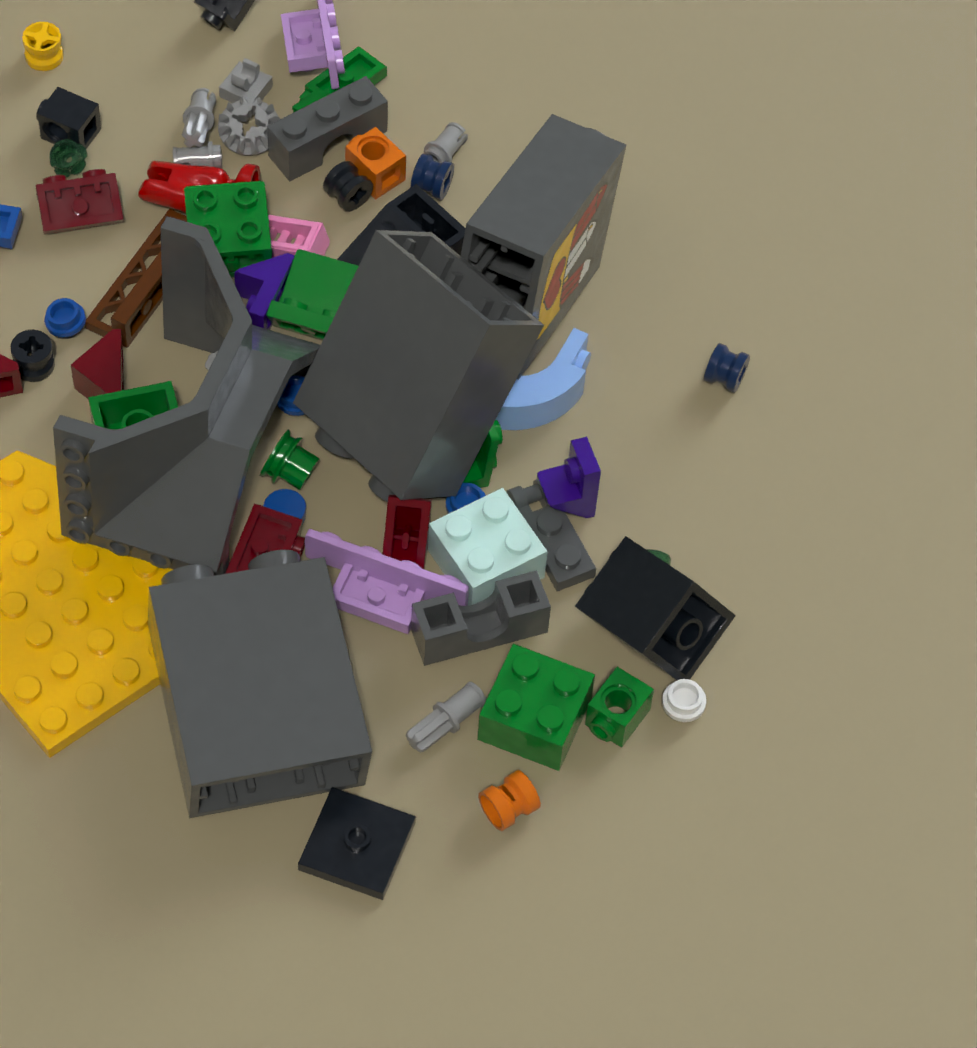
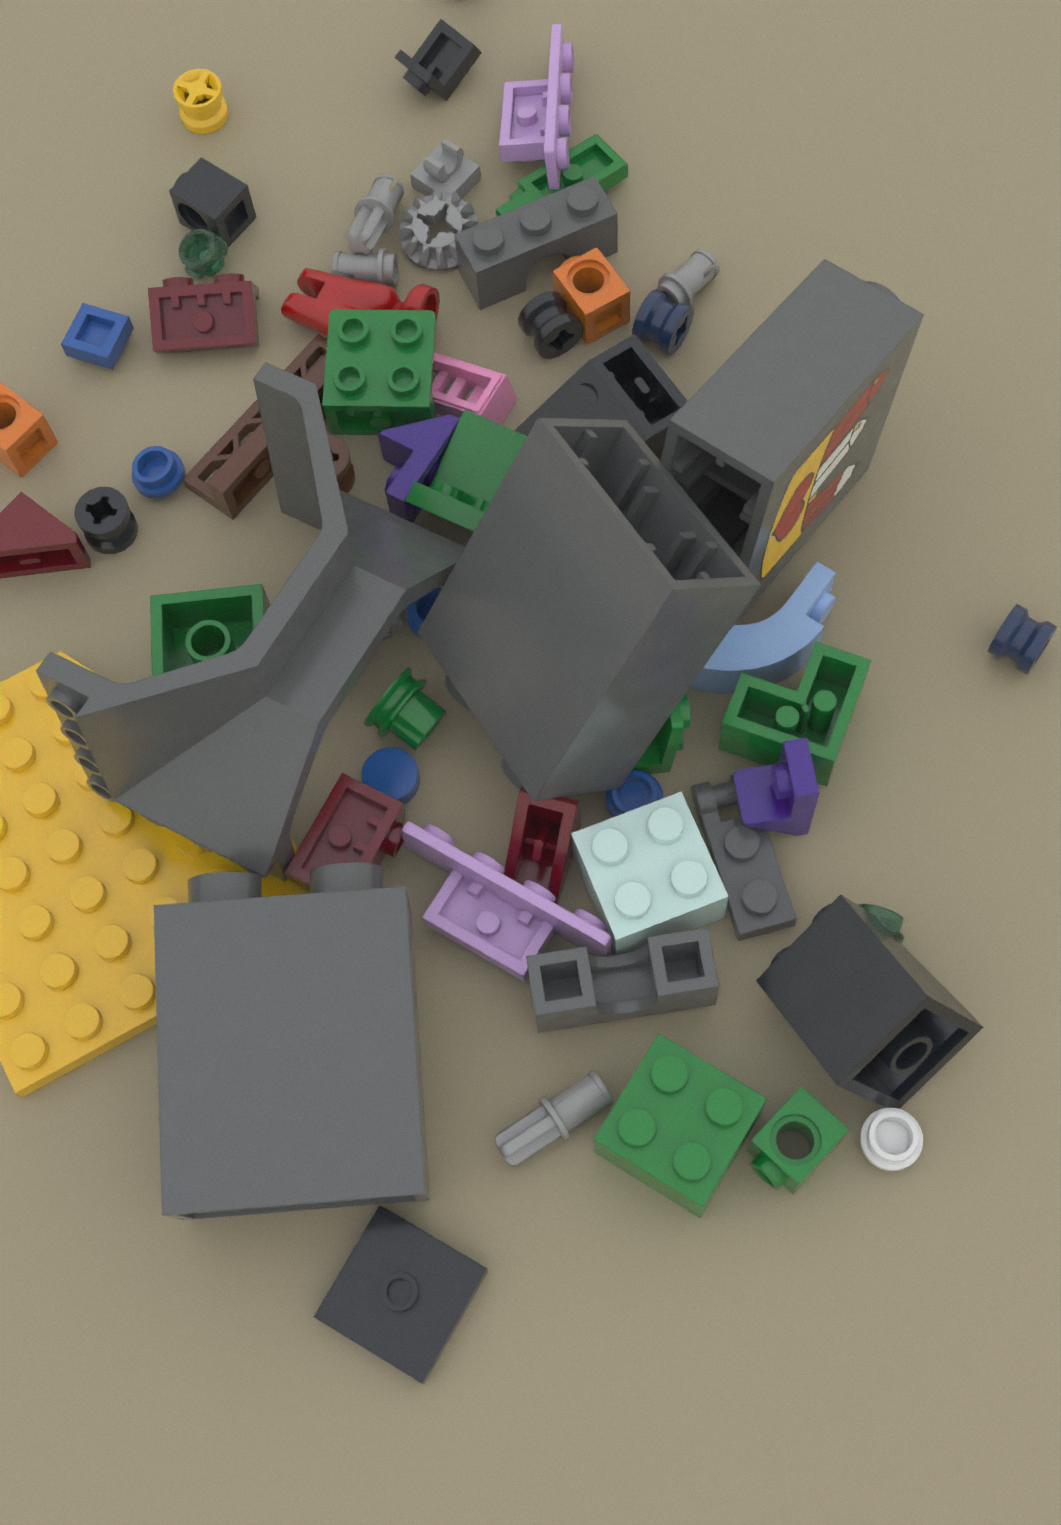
camera: 20 degrees right, 10 degrees up
(100, 367) = (190, 548): dark red slope -> none
(509, 800) = (634, 1261): orange wheel -> none
(552, 429) = (820, 710): none -> green brick

